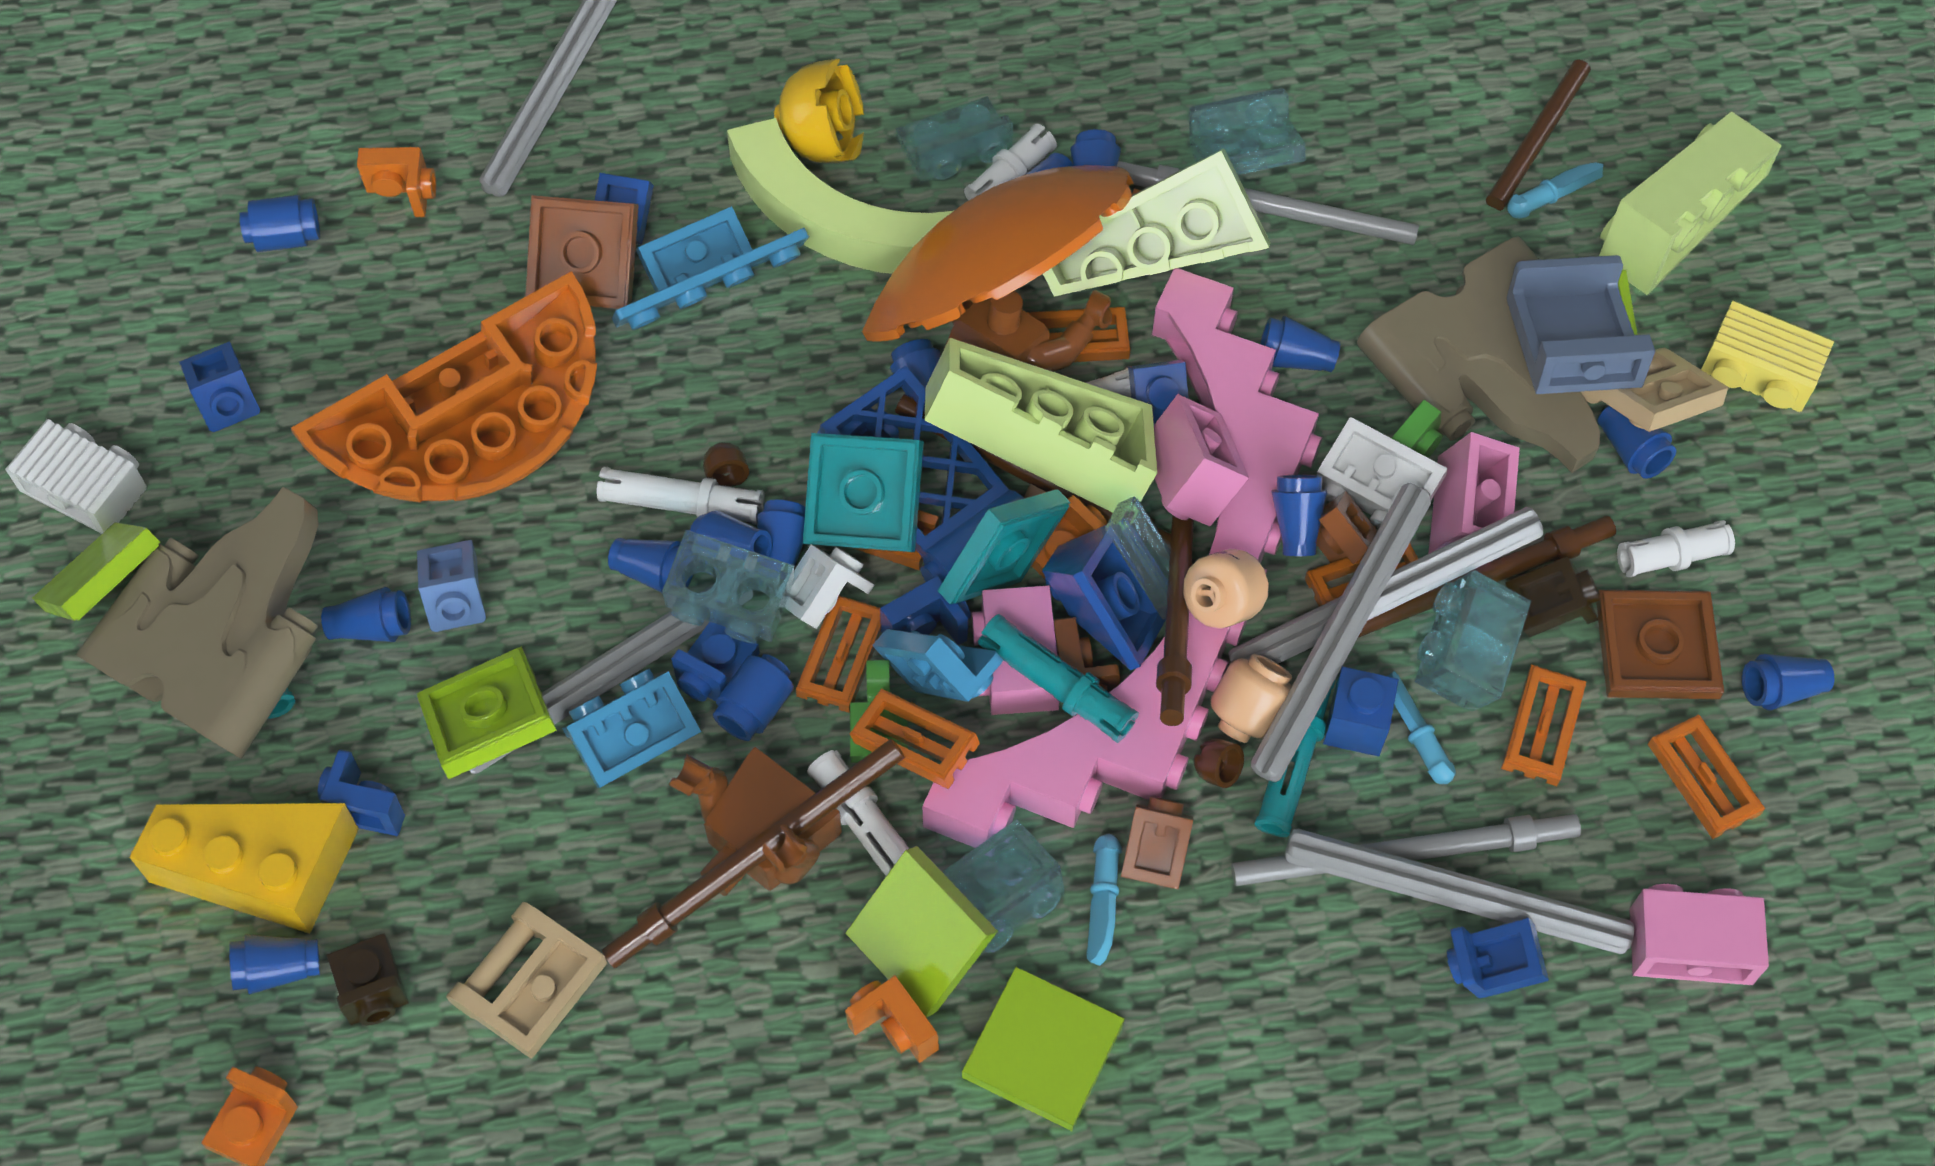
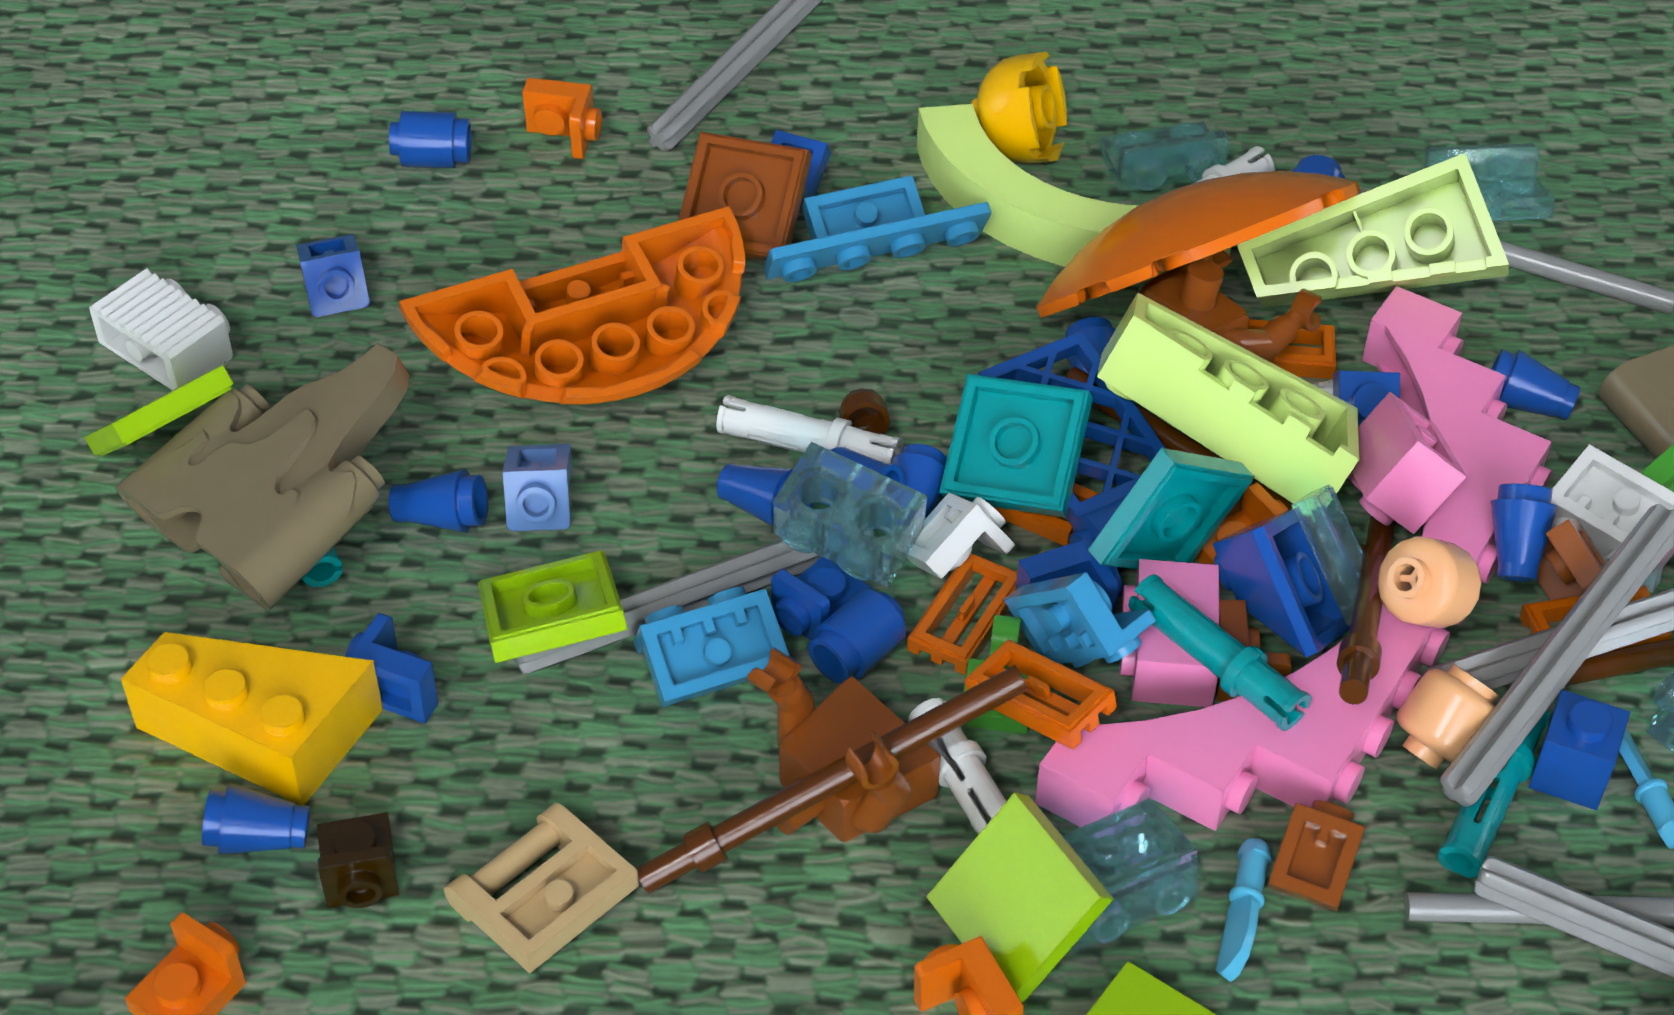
camera: 10 degrees right, 15 degrees down
(1219, 762) = (1401, 782): reddish brown hinge -> none

